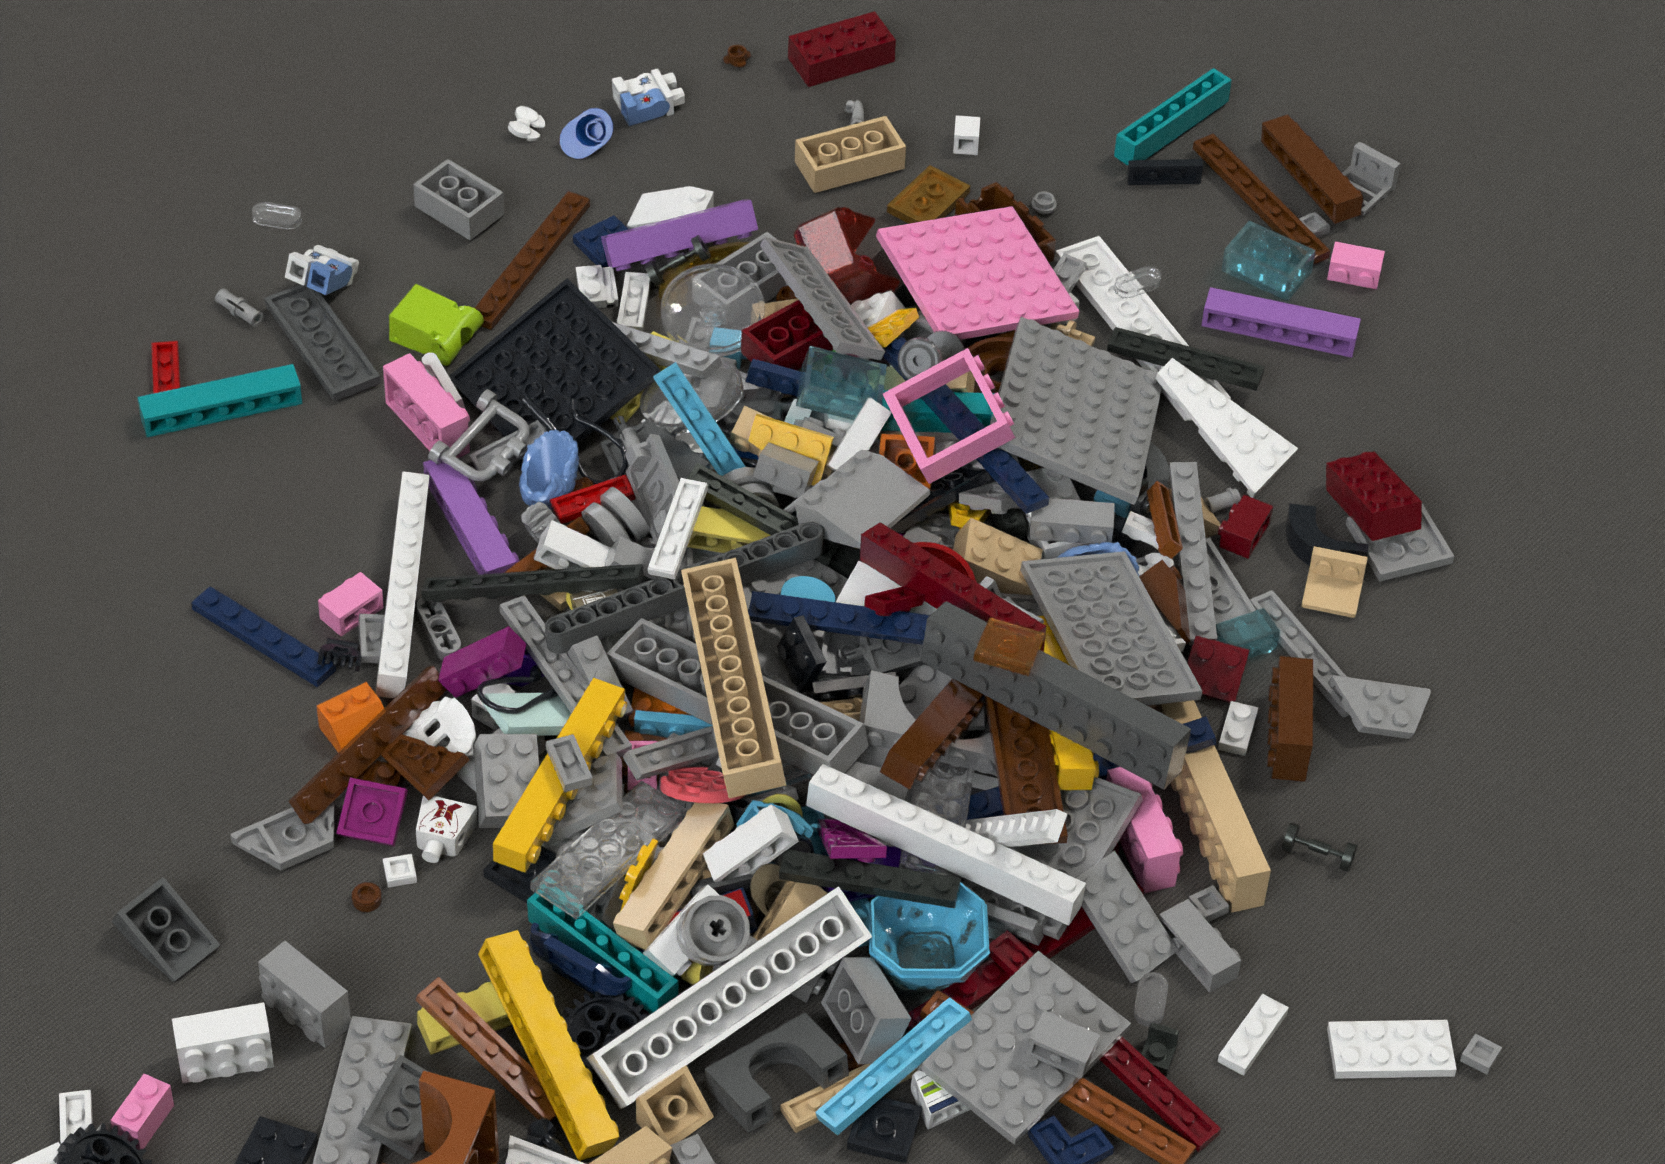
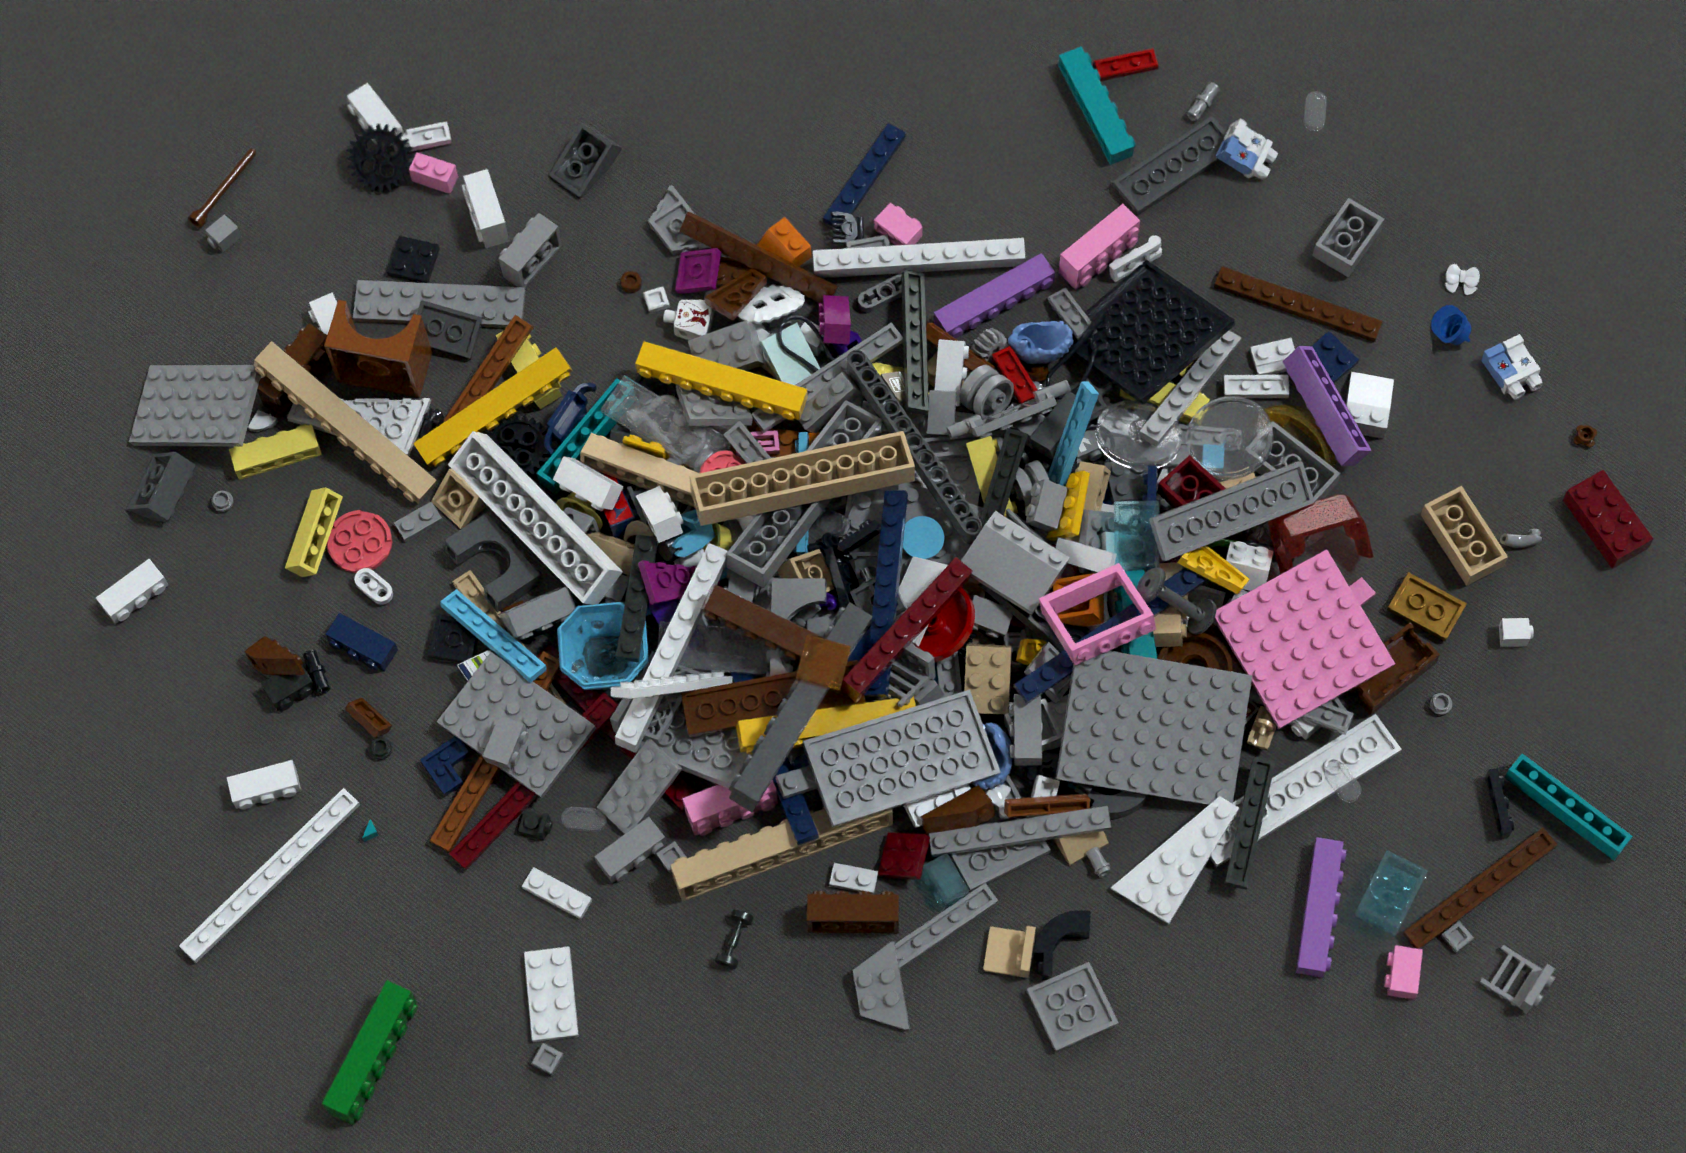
camera: 90 degrees right, 20 degrees up
(433, 324) = (1200, 240): lime piece -> none
(500, 462) = (1062, 313): light grey bar -> none
(569, 763) = (715, 379): light grey plate -> none
(655, 272) = (1304, 420): pearl dark grey wheel -> none
(677, 528) = (954, 427): white tile -> none
(695, 931) = (573, 493): light grey wheel -> none
(893, 600) = (897, 588): dark red plate -> none
(1245, 526) = (1069, 879): dark red brick -> none
(1312, 169) = (1522, 930): reddish brown brick -> none
(1373, 496) = (1105, 978): dark red brick -> none

